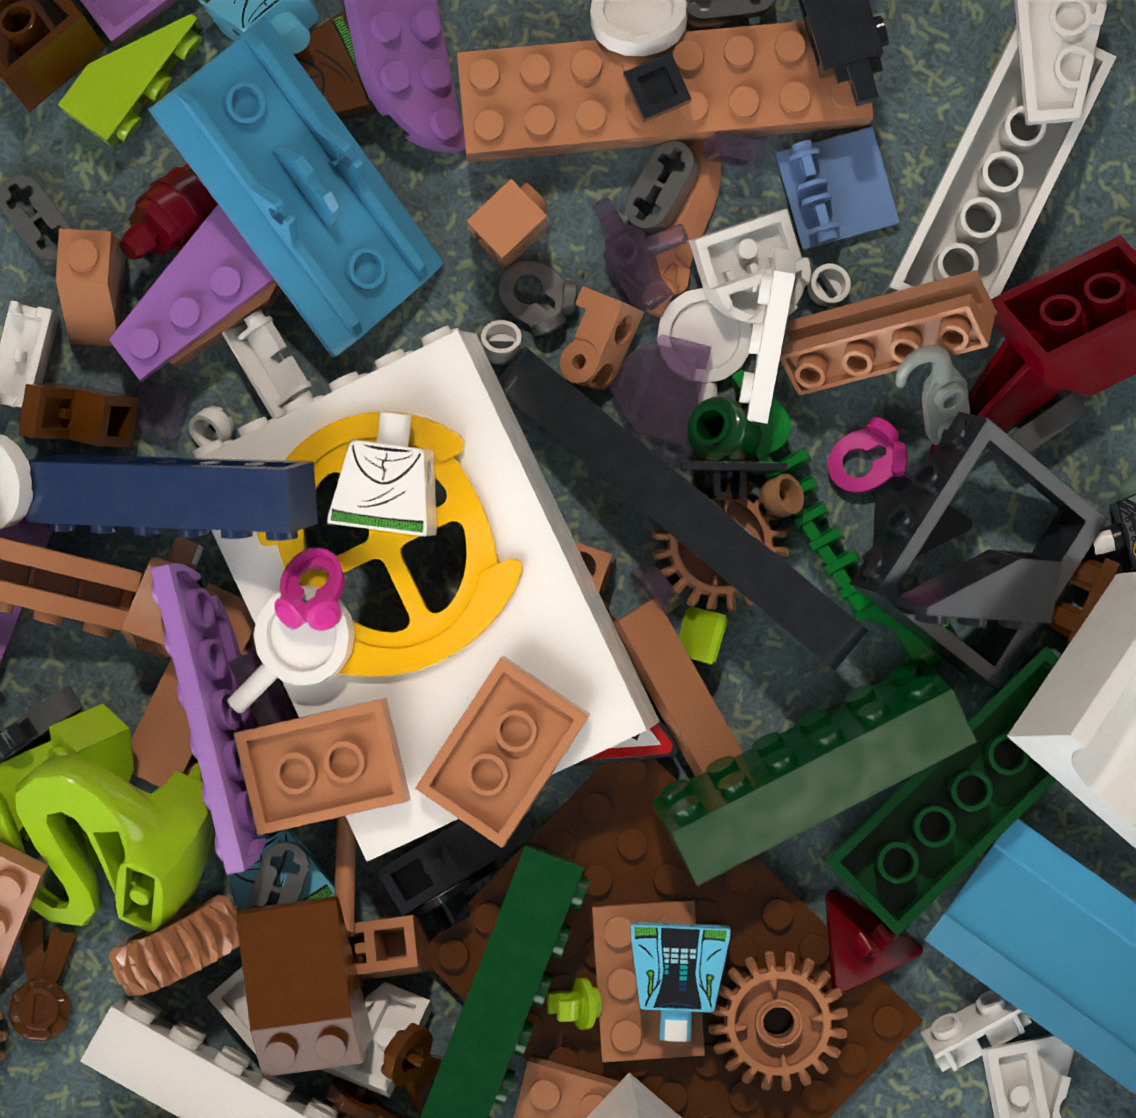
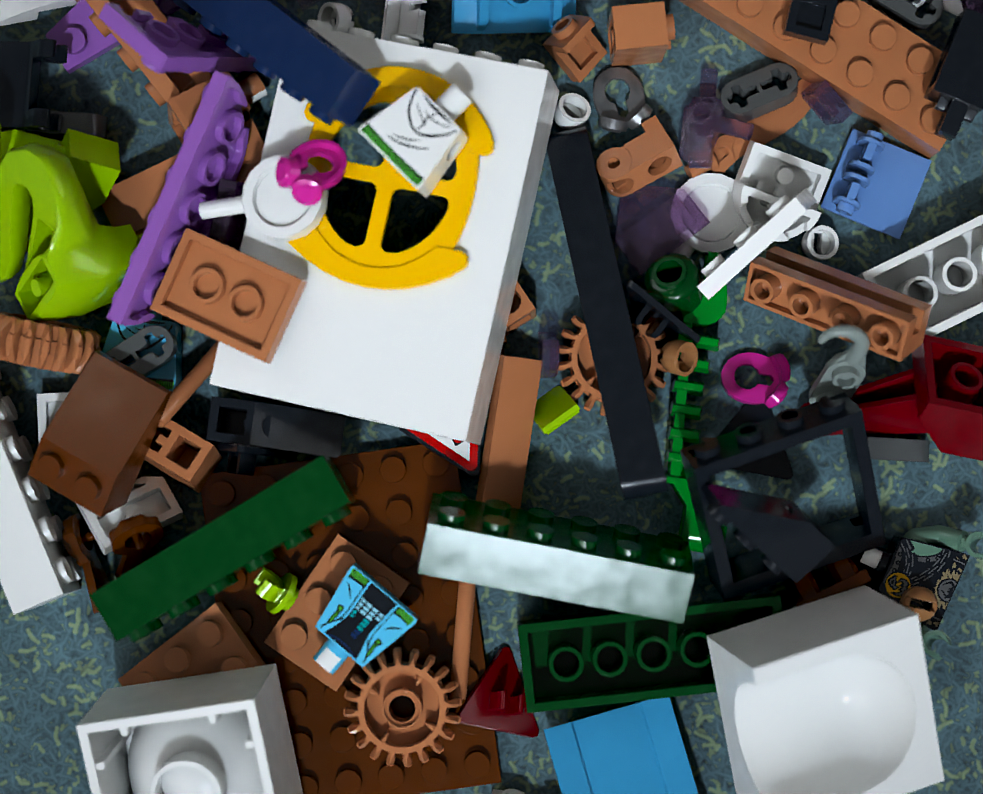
camera: 30 degrees right, 0 degrees up
(89, 573) = (174, 44): none -> medium lavender wing
(457, 279) = (575, 46): none -> nougat bracket
(502, 751) = (356, 379): nougat plate -> none
(783, 914) = (462, 638): none -> nougat bar

